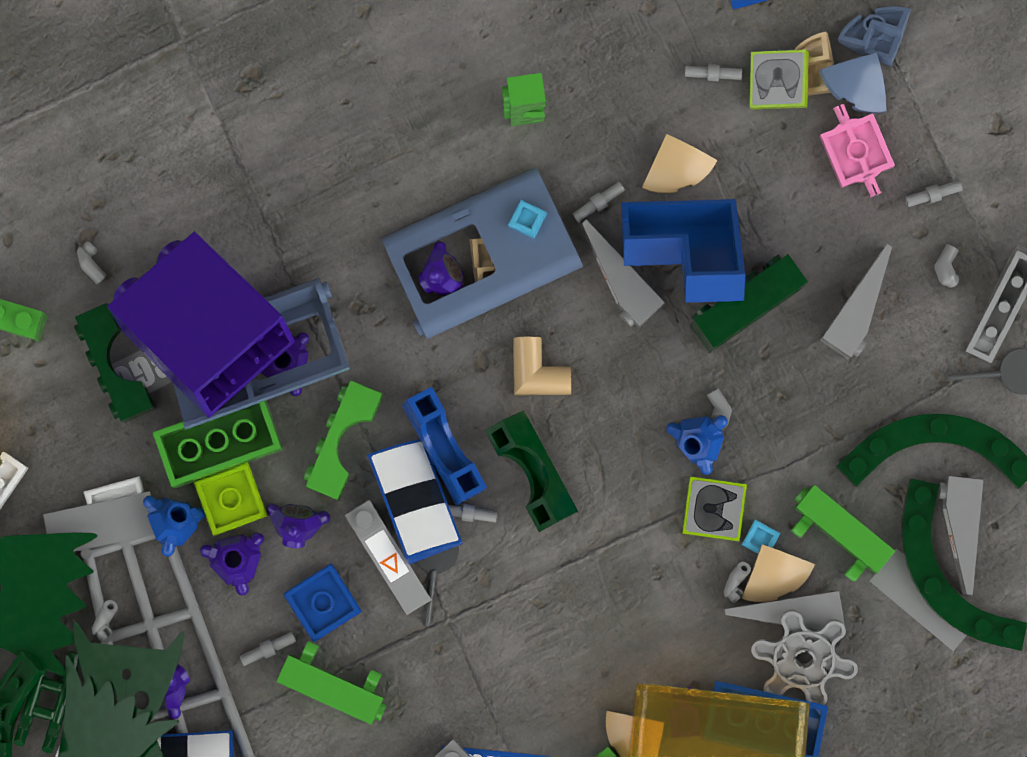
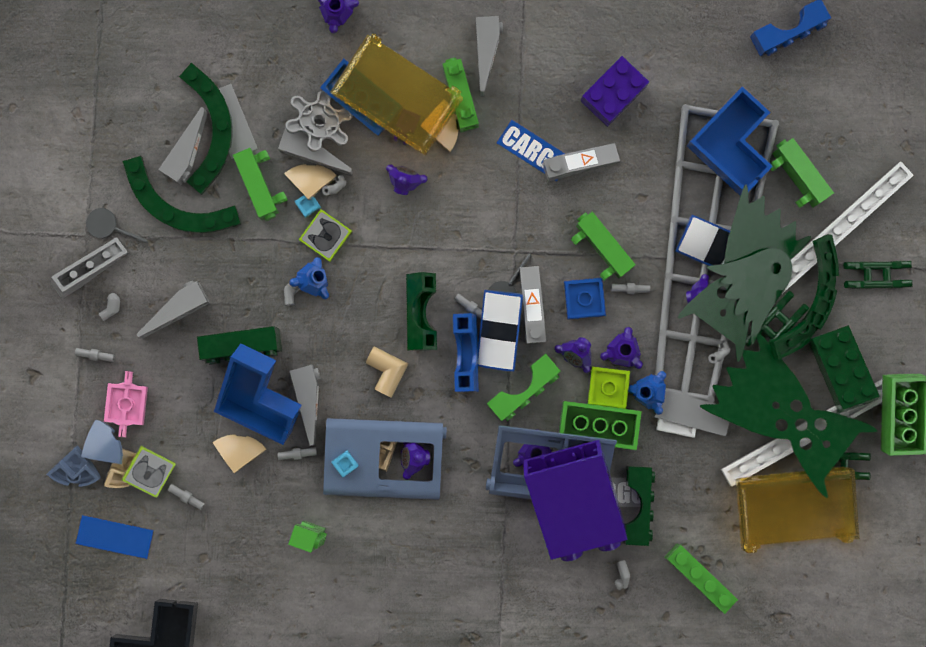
camera: 155 degrees left, 0 degrees up
(647, 640) = (404, 179): none -> dark purple rock

